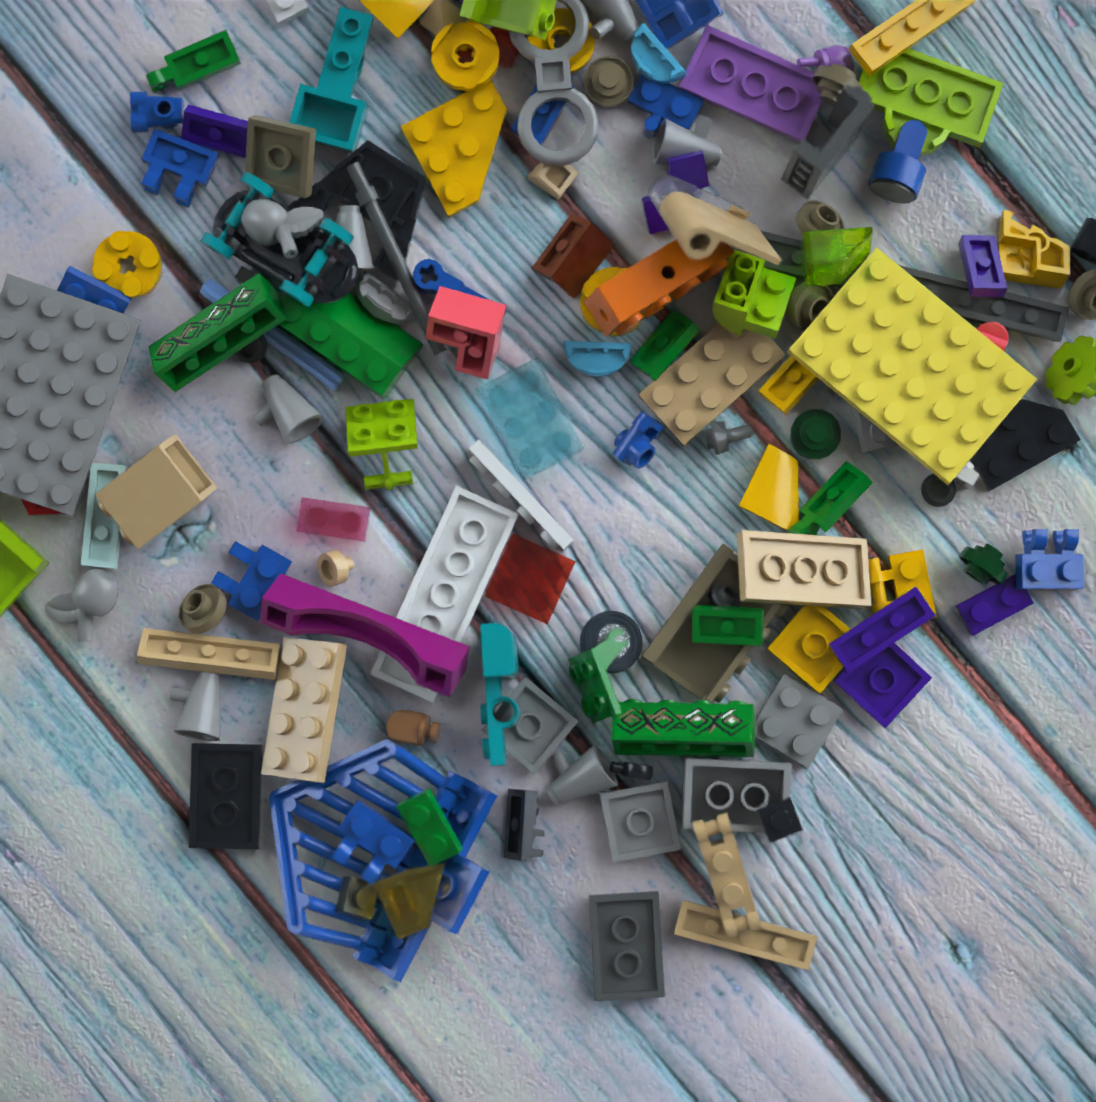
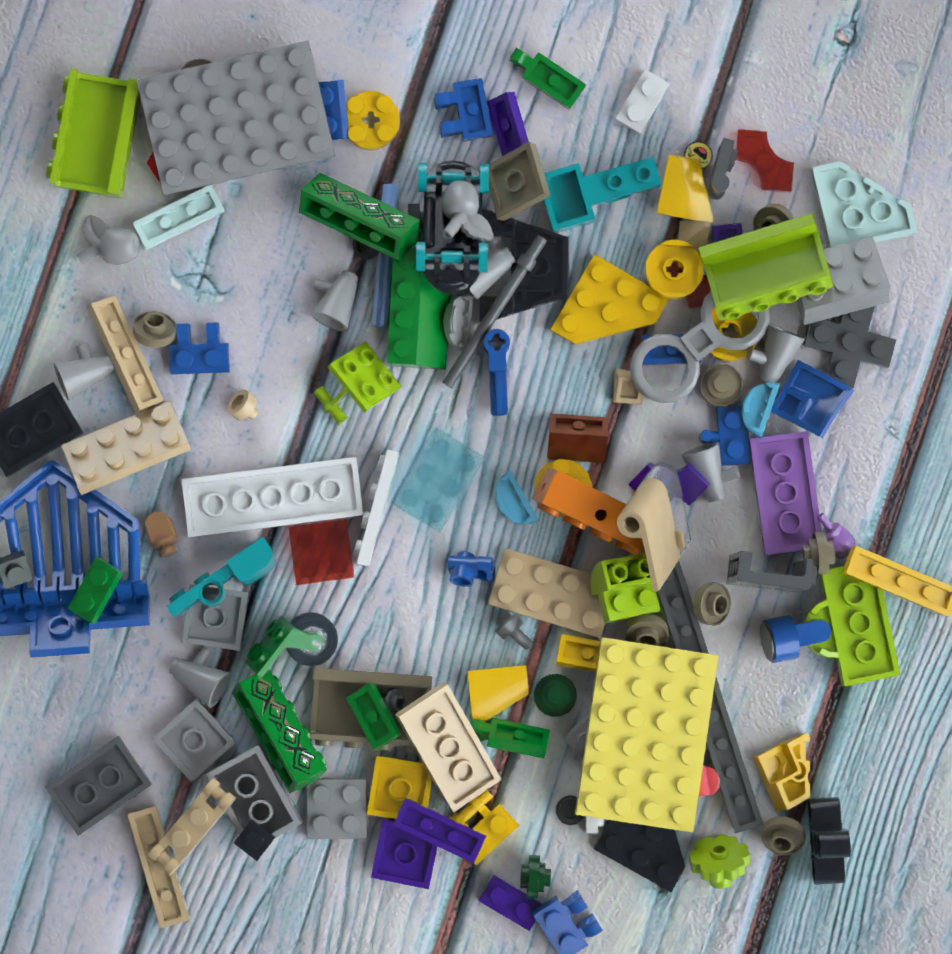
camera: 55 degrees right, 0 degrees up
(146, 111) = (490, 64): blue plate -> none
(155, 492) = (217, 244): tan slope -> none
(306, 609) = (198, 401): magenta arch -> none
(333, 519) = (277, 383): clear pink plate -> none
(374, 833) = (66, 554): blue plate -> none
(410, 898) = (36, 607): clear yellow slope -> none
(470, 325) = (475, 393): coral brick -> none
(520, 823) = (141, 653): black plate -> none
(632, 770) = (228, 712): black piece -> none
(664, 345) = (552, 545): green plate -> none
(833, 254) = (693, 627): clear neon green slope -> none
(982, 266) = (754, 742): dark purple plate -> none

